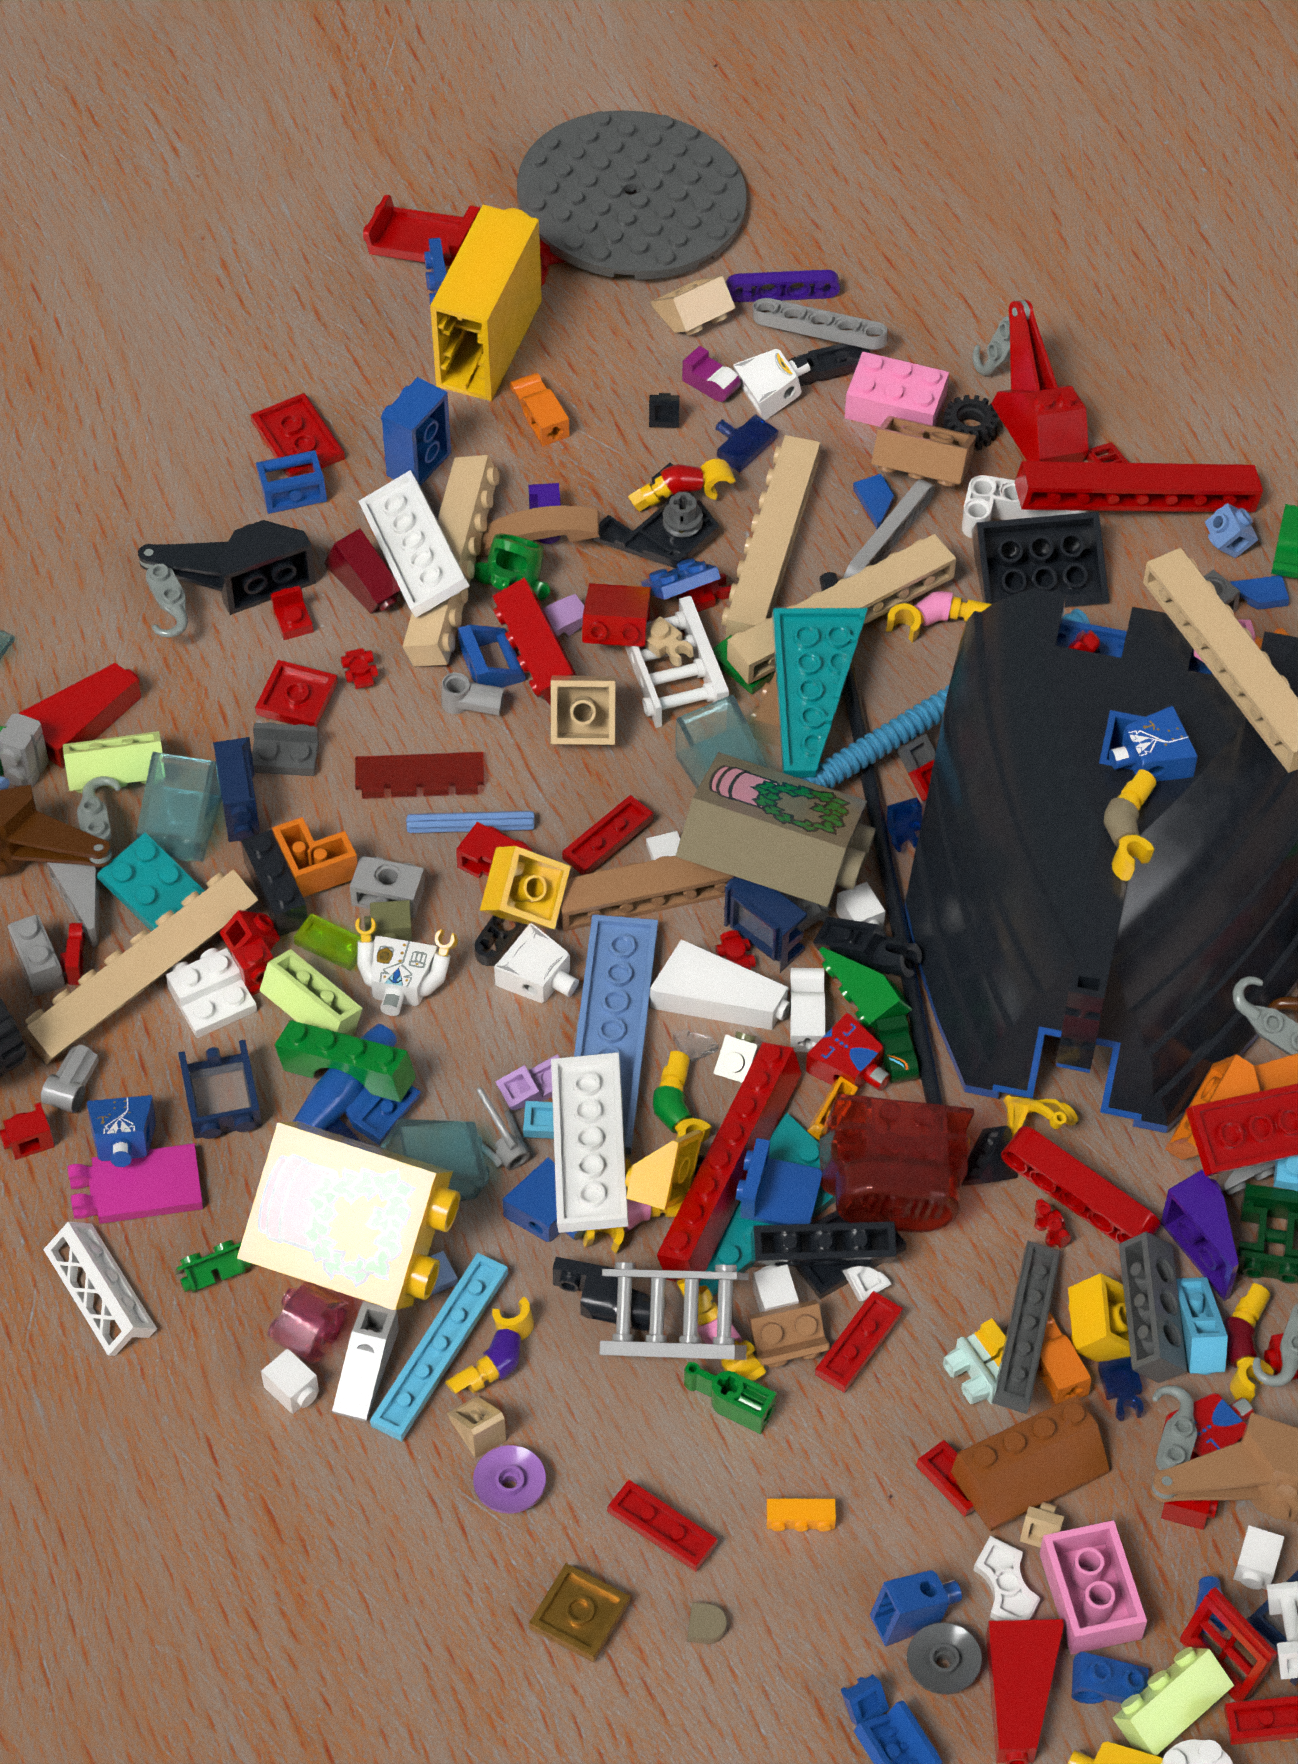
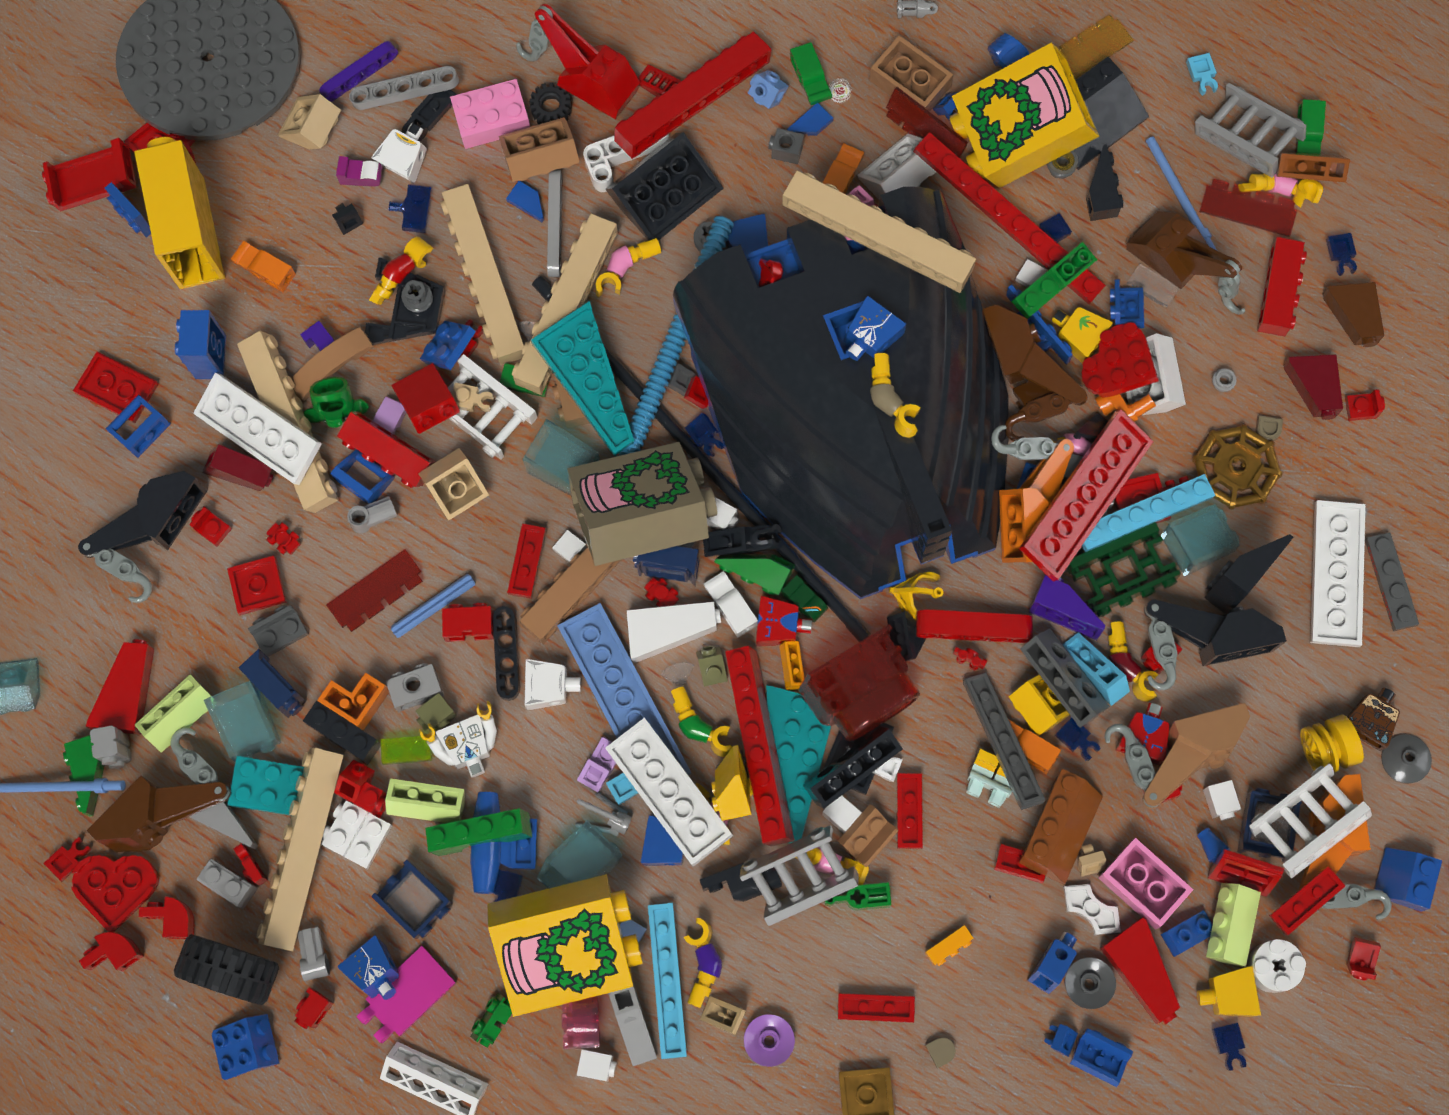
camera: 30 degrees left, 20 degrees up
(525, 887) = (507, 640): yellow slope -> none
(777, 1189) = (801, 746): blue bracket -> none

